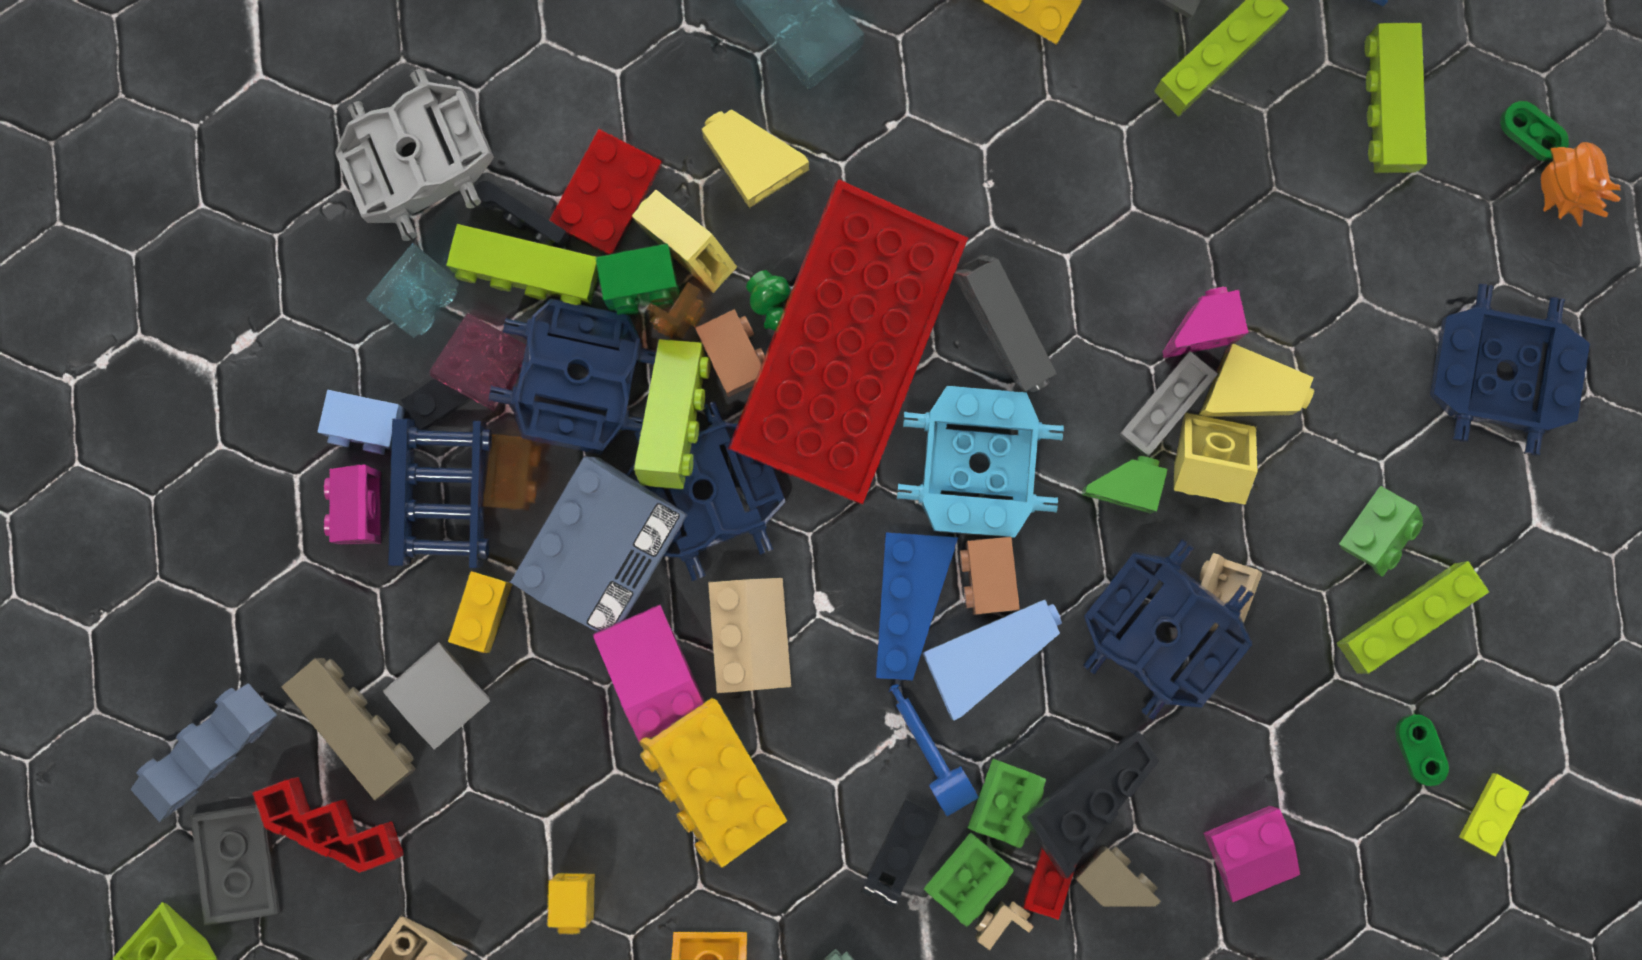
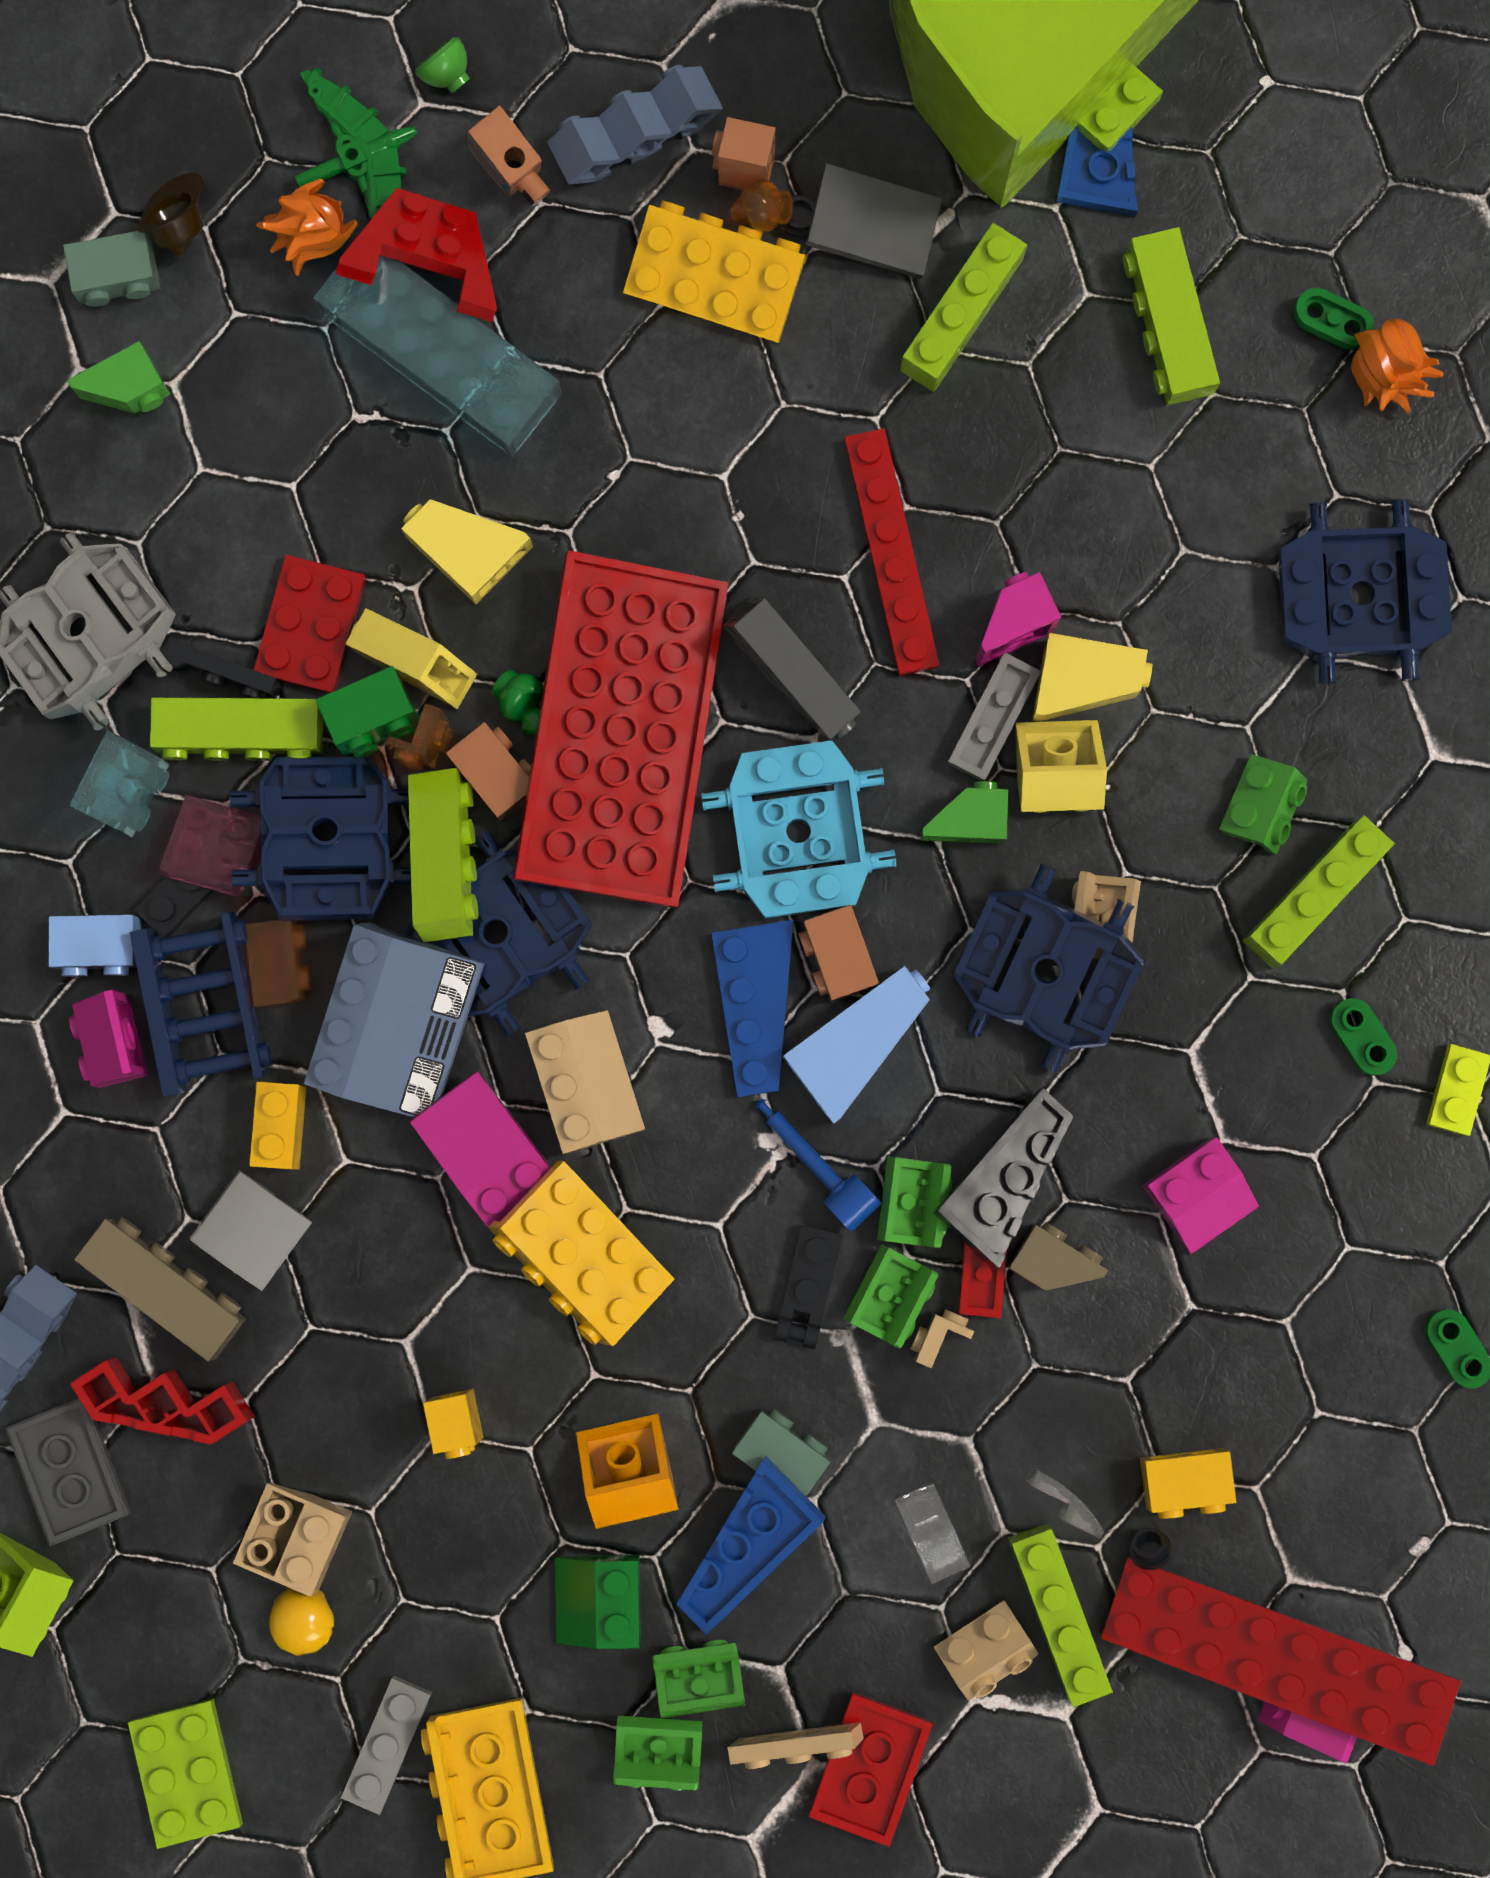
camera: 10 degrees left, 0 degrees up
(1112, 243) = (891, 552): none -> red plate

